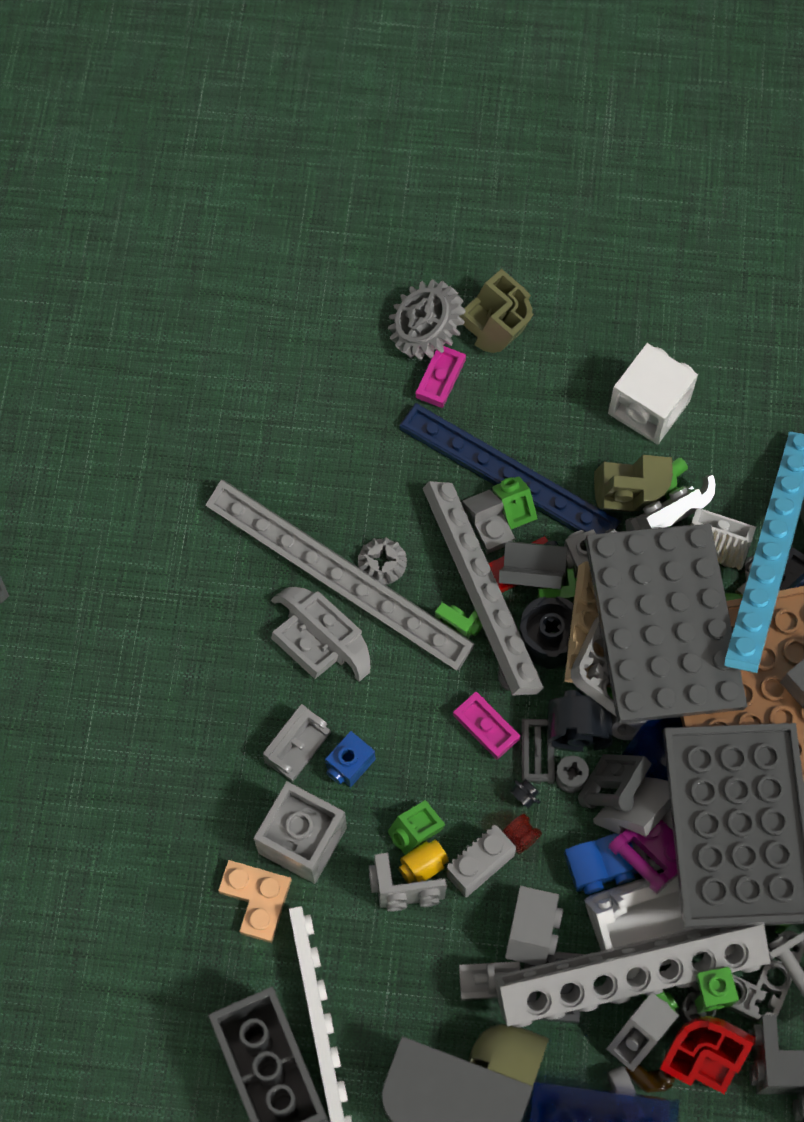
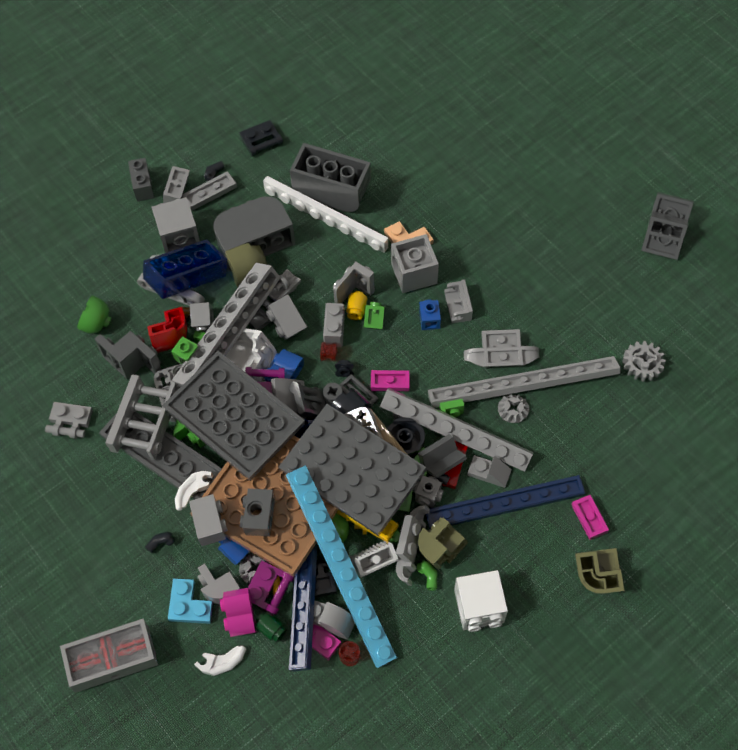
camera: 135 degrees right, 5 degrees down
(187, 457) = (641, 362): none -> light grey gear
(426, 319) = (628, 533): light grey gear -> none
(517, 501) = (486, 486): bright green bracket -> none

